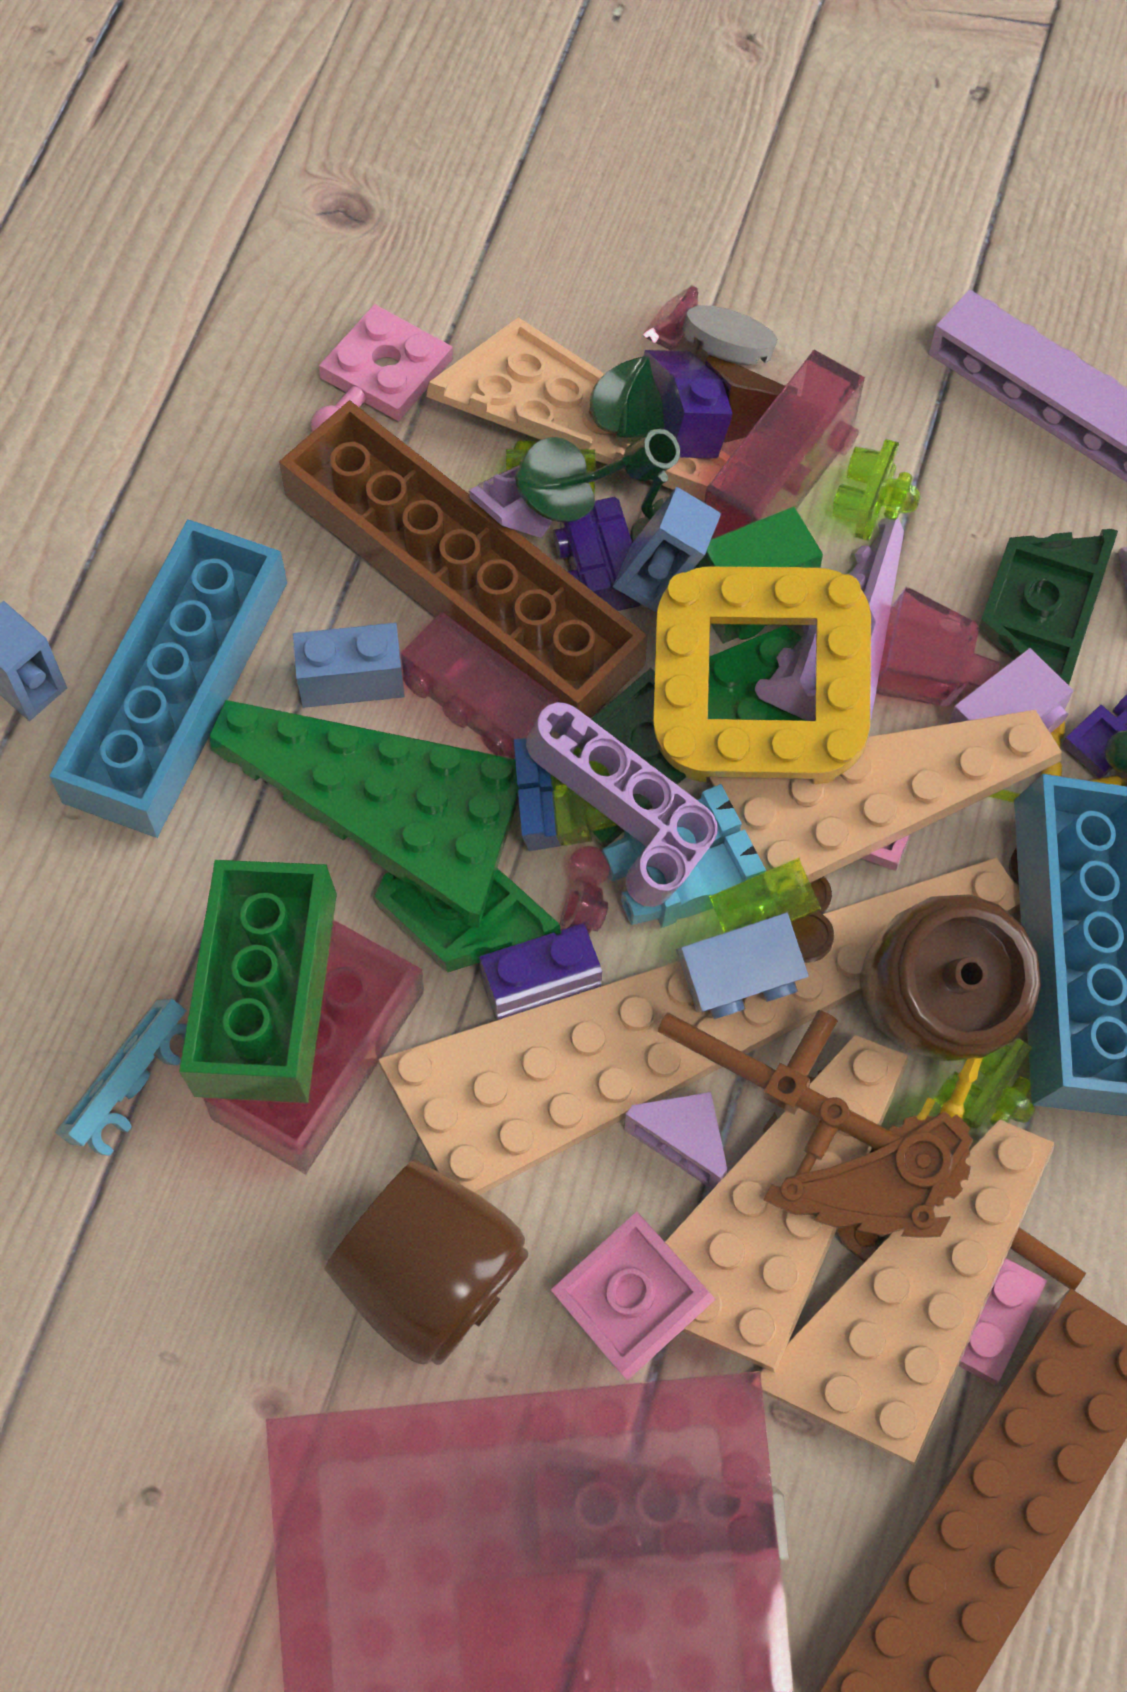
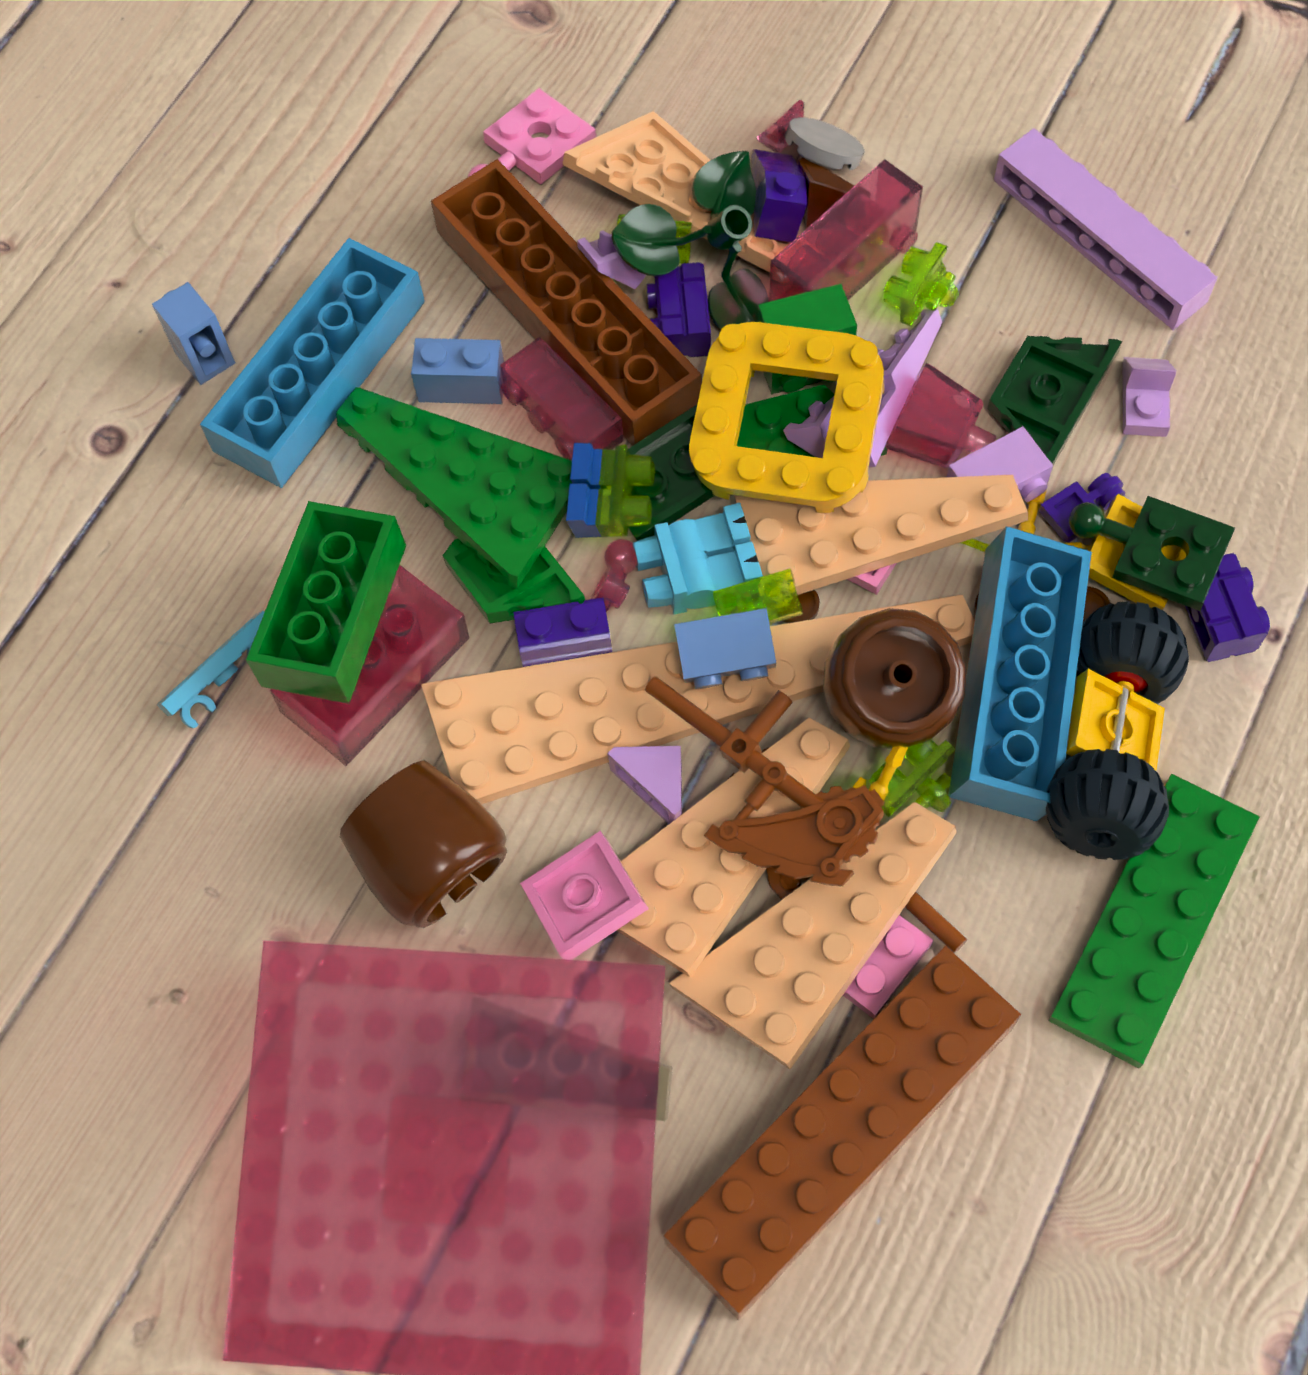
camera: 15 degrees right, 0 degrees up
(615, 799) = (612, 438): lavender beam -> none
(667, 546) = (729, 302): medium blue brick -> none
(814, 936) = (791, 636): reddish brown piece -> none

